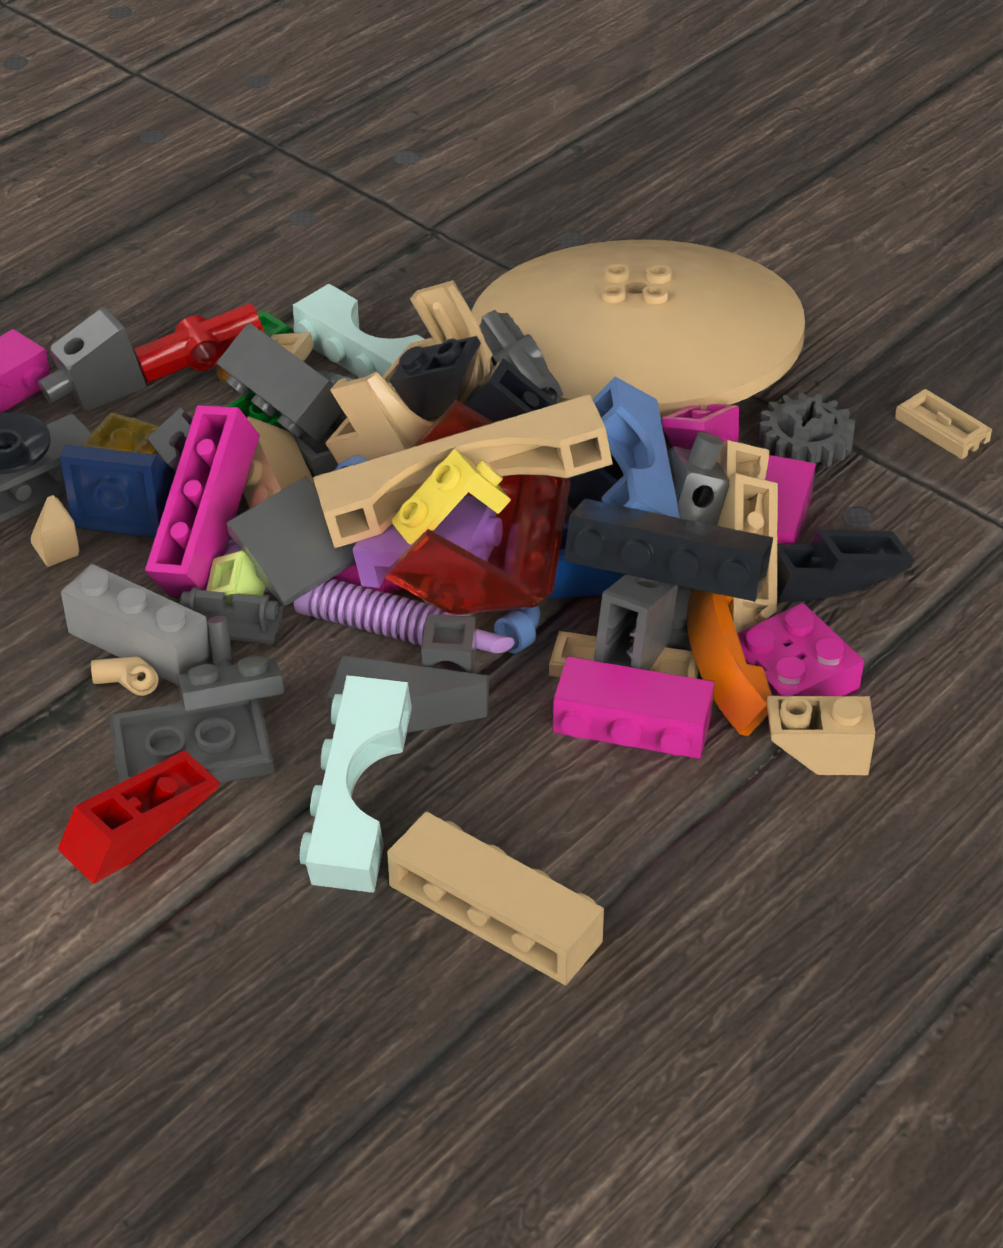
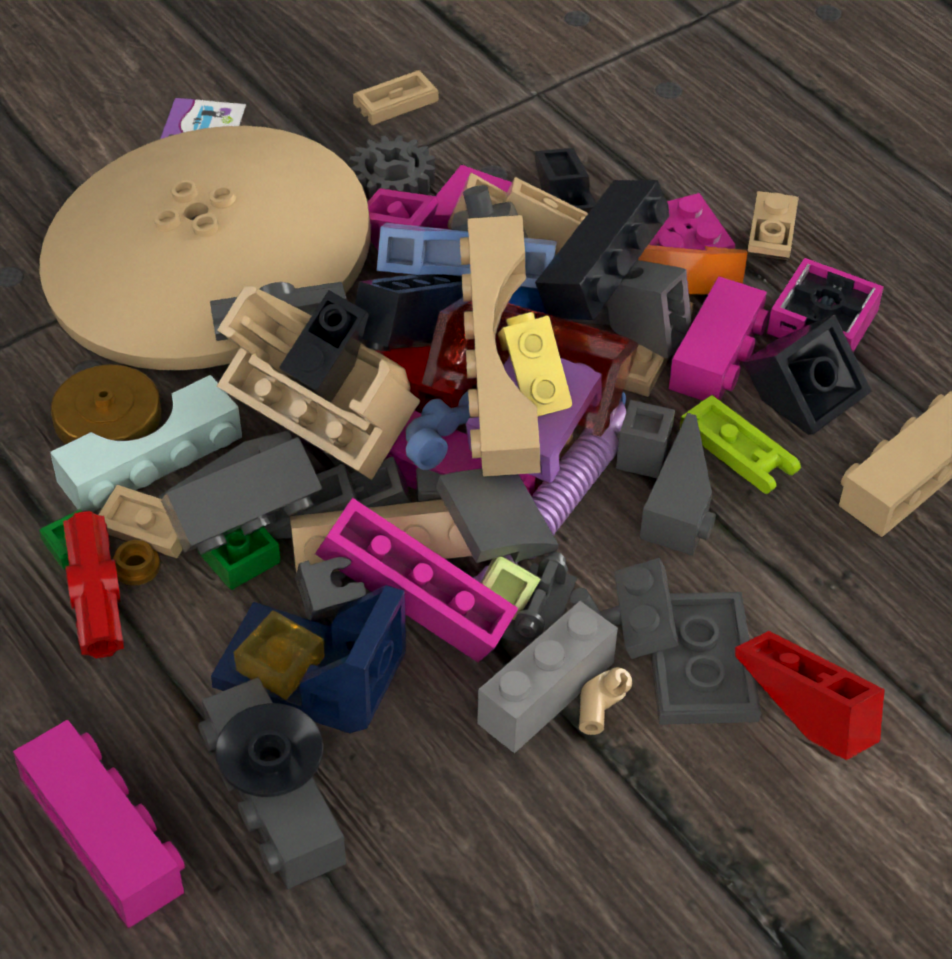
camera: 80 degrees left, 5 degrees up
(55, 533) = (374, 745): tan slope -> none
(93, 363) = (105, 678): dark grey torso -> none
(344, 840) = (756, 497): light aqua arch -> none
(388, 311) = (108, 402): none -> pearl gold wheel
(482, 739) = (741, 444): none -> lime hinge
(594, 787) = (809, 375): none -> black slope
(711, 793) = (821, 292): none -> piece
(837, 307) = (201, 114): none -> sticker

